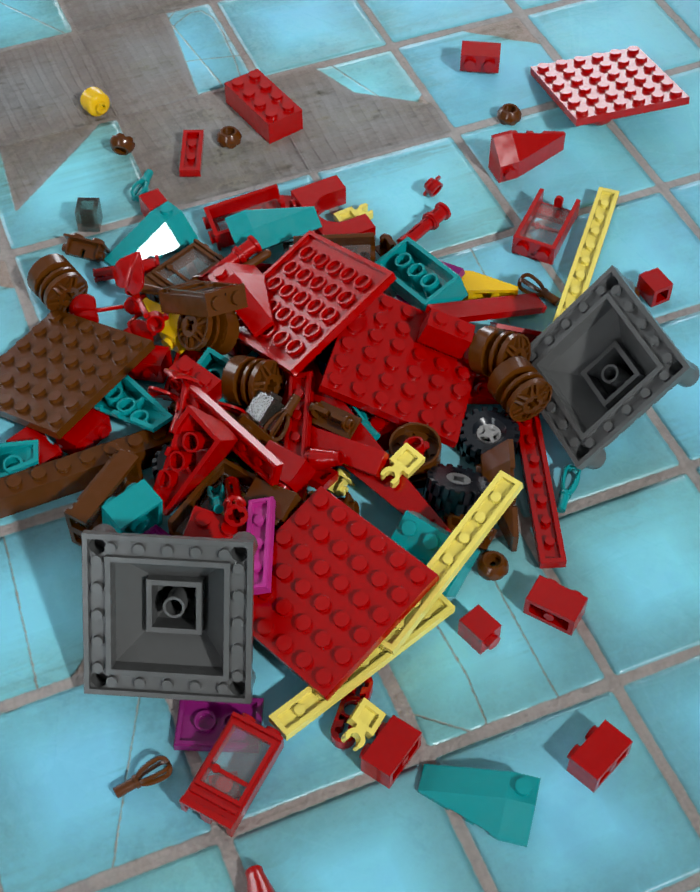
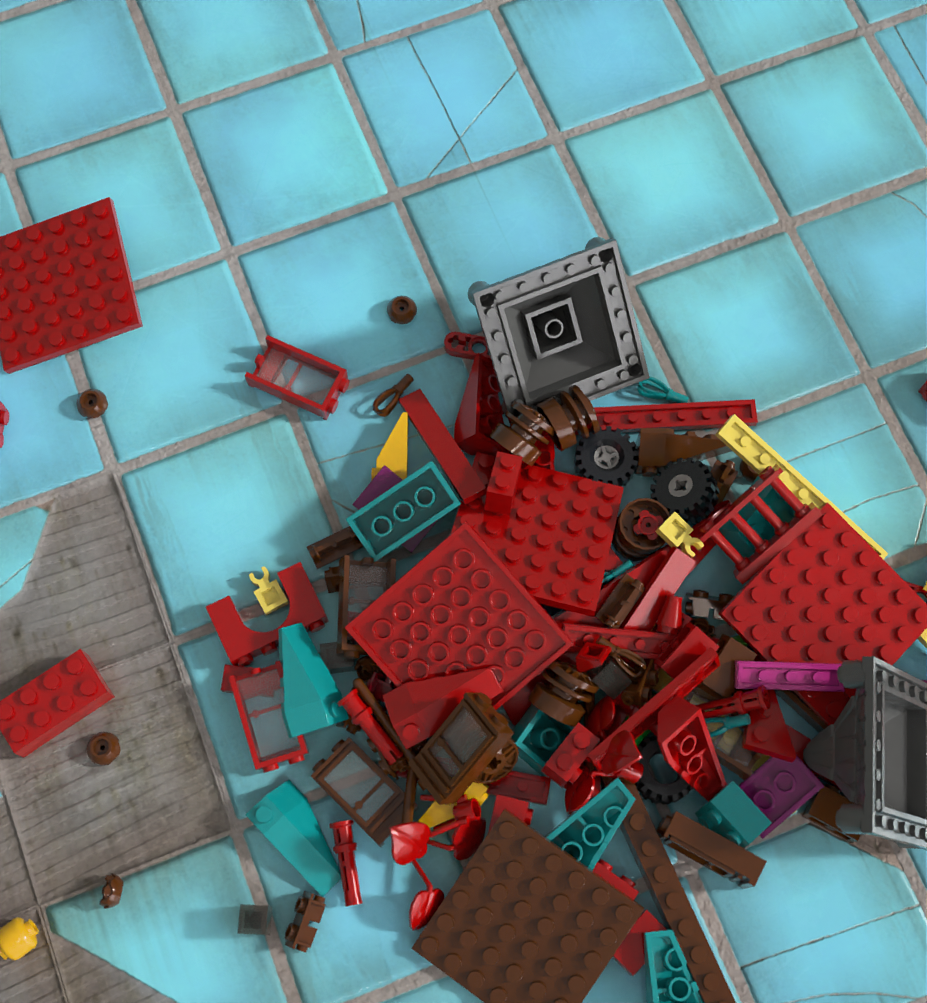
camera: 90 degrees left, 20 degrees up
(56, 282) = (385, 944): reddish brown wheel -> none
(144, 182) = (181, 855): teal piece -> none
(151, 200) = (236, 836): red brick -> none
(191, 153) = (134, 795): red plate -> none
(281, 385) = (591, 656): none -> red slope
(407, 540) = (765, 549): none -> red fence
(429, 222) = (280, 501): red pin -> none
(433, 186) = (221, 497): red plate -> none
(479, 629) = (834, 480): red brick -> none
(518, 153) = (181, 399): red wedge -> none
(555, 605) = (801, 414): red brick -> none
(589, 247) = (354, 343): light yellow plate -> none
(654, 287) = (396, 279): red brick -> none

